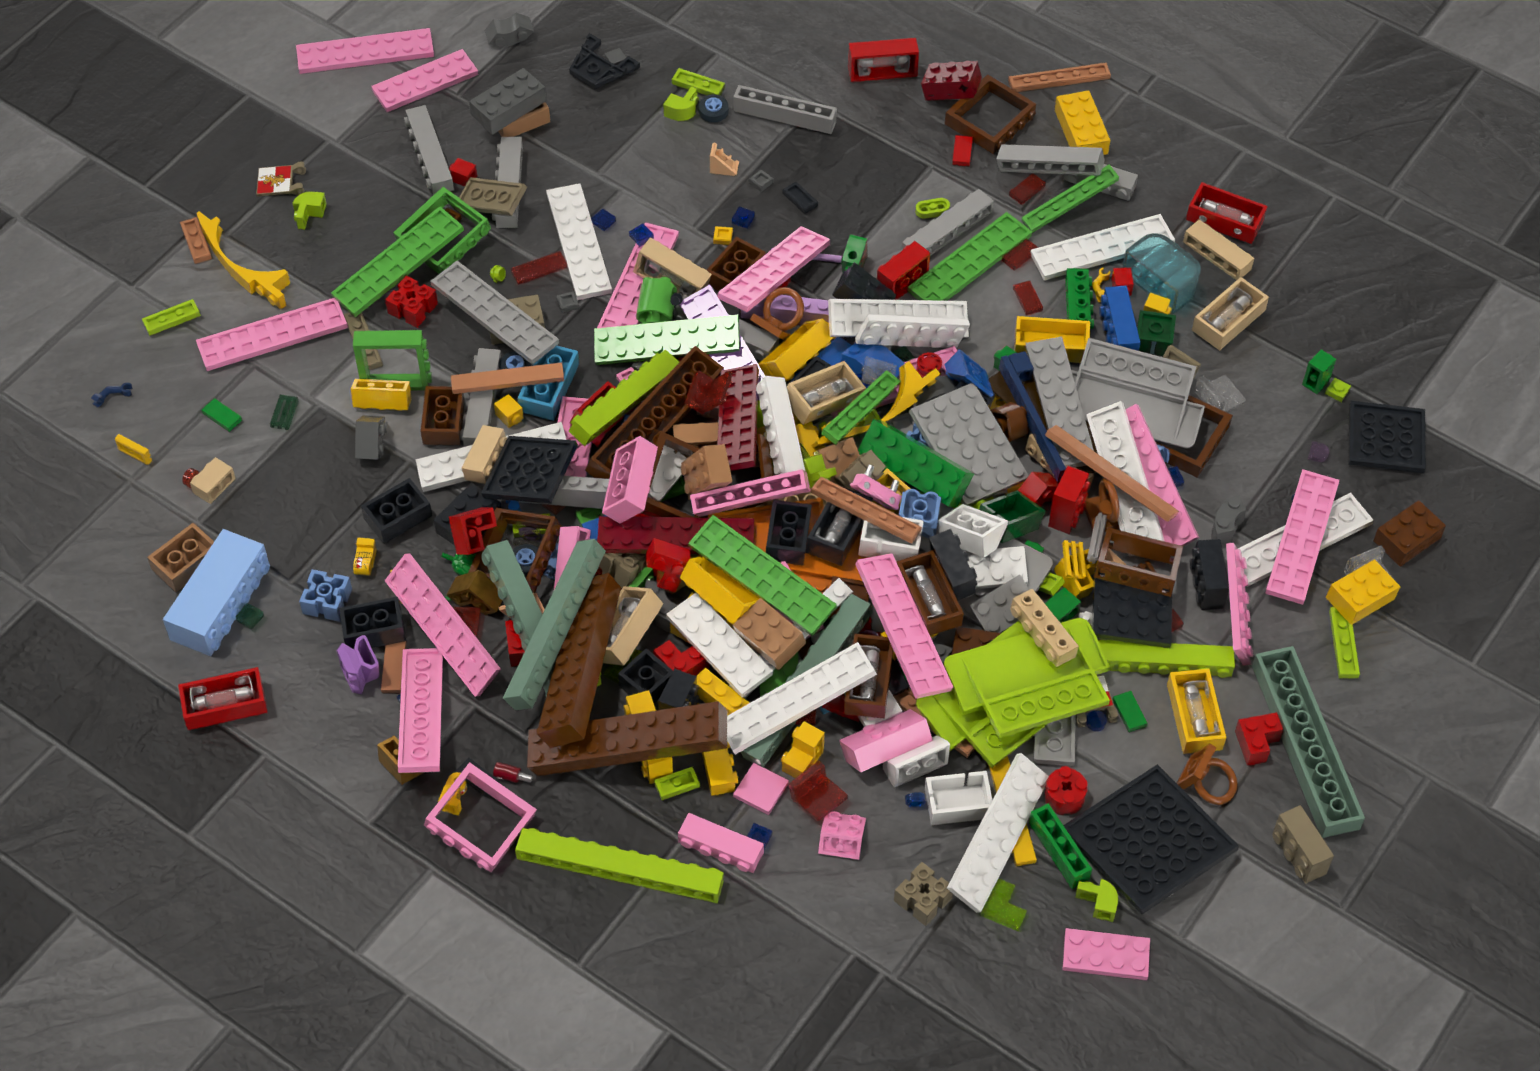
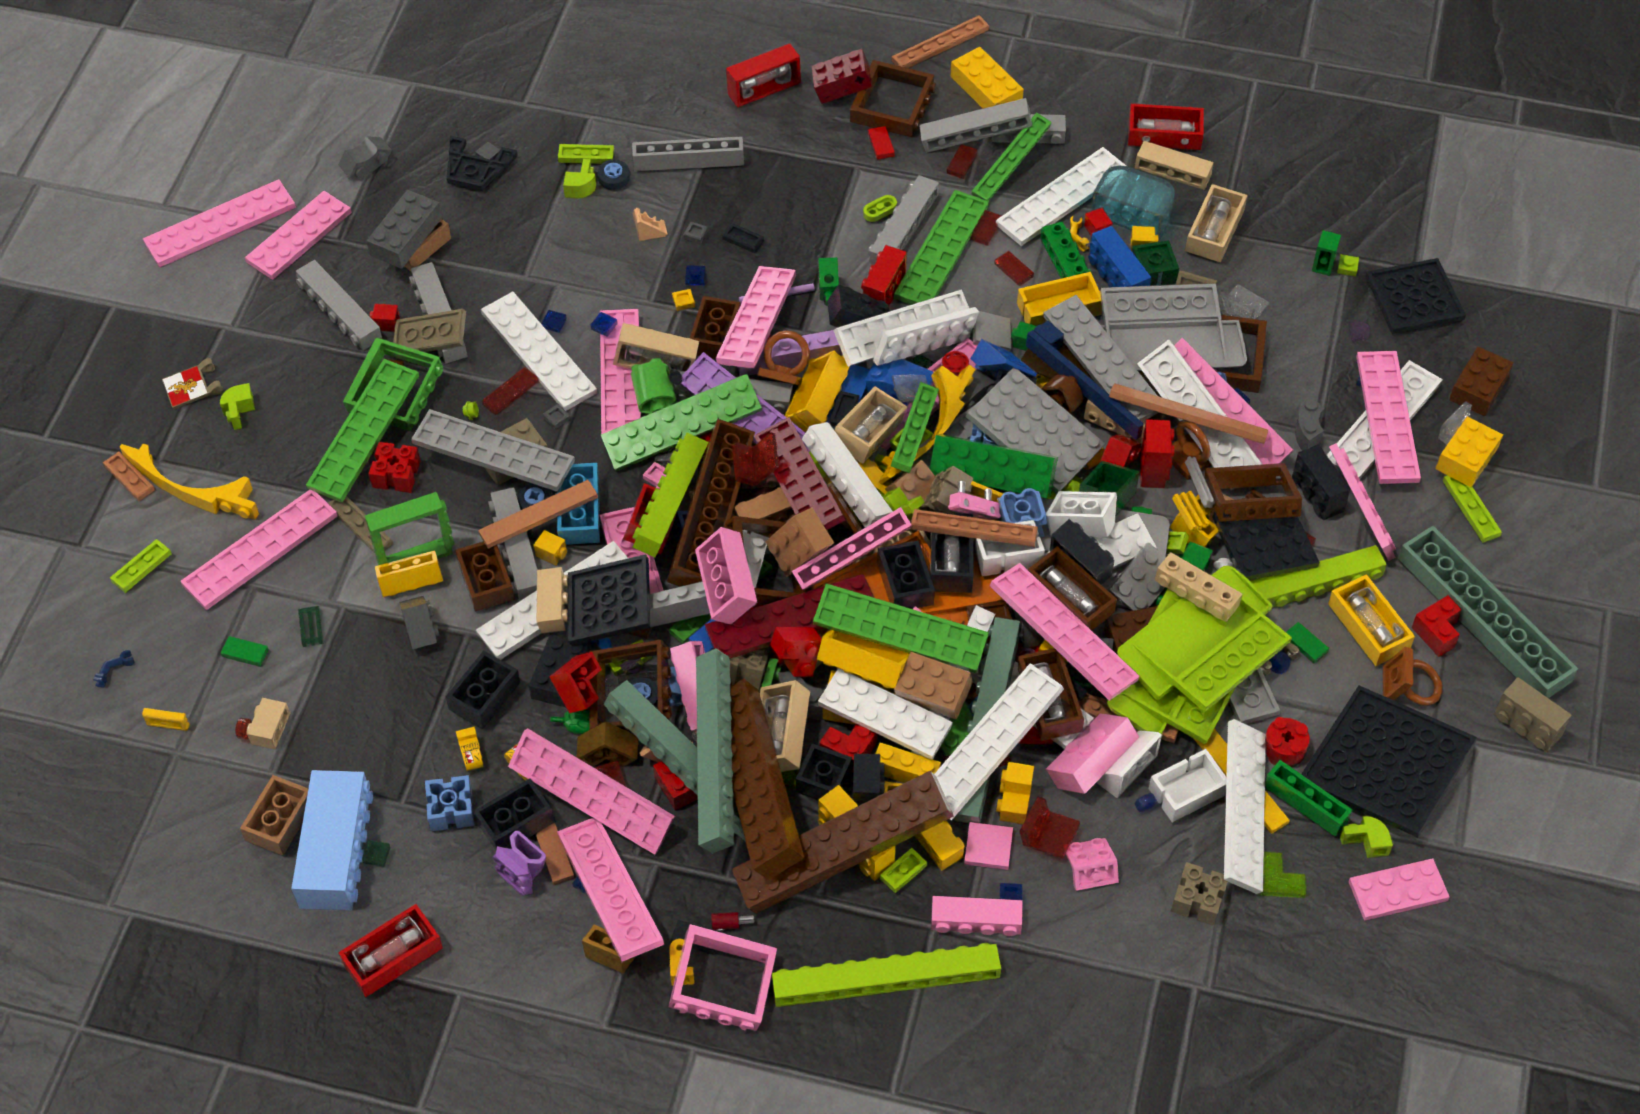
camera: 20 degrees left, 0 degrees up
(979, 346) = (992, 329): none -> light grey tile

